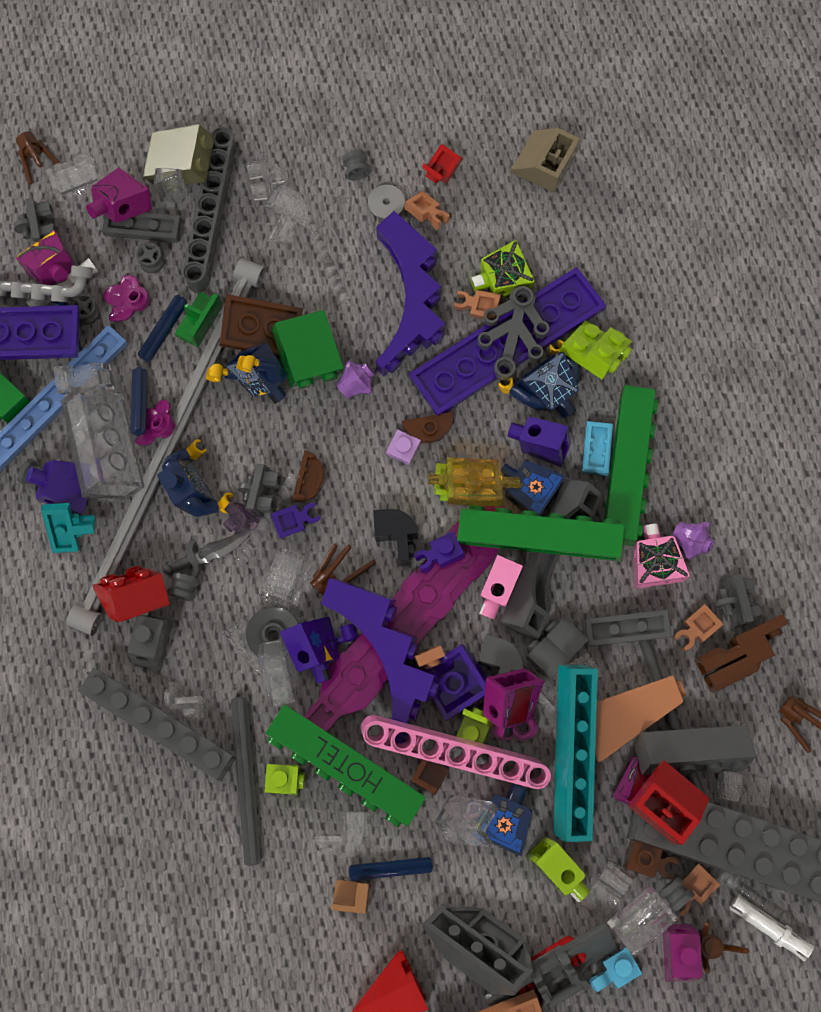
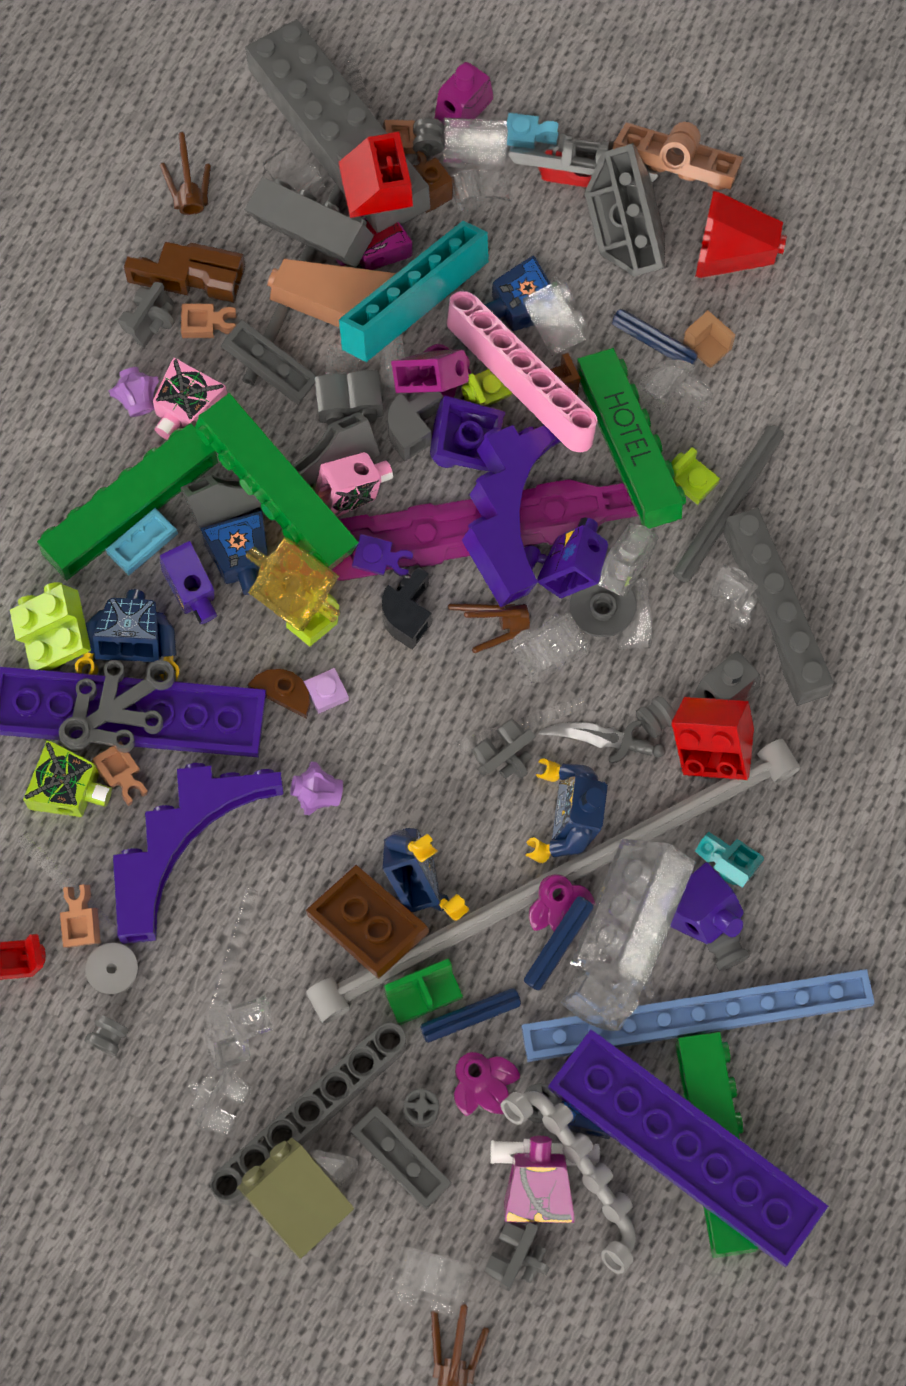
camera: 145 degrees left, 5 degrees down
(119, 197) = (402, 1201): magenta torso -> none
(239, 517) = (548, 740): clear purple tile -> none
(290, 521) = (498, 702): dark purple plate -> none
(307, 349) = (339, 854): green brick -> none
(310, 478) = (445, 729): reddish brown plate -> none
(429, 657) = (471, 465): nougat plate -> none
(552, 862) = (508, 216): lime torso -> none
(713, 947) = (432, 84): reddish brown plant -> none
(778, 932) = (367, 56): white pin -> none

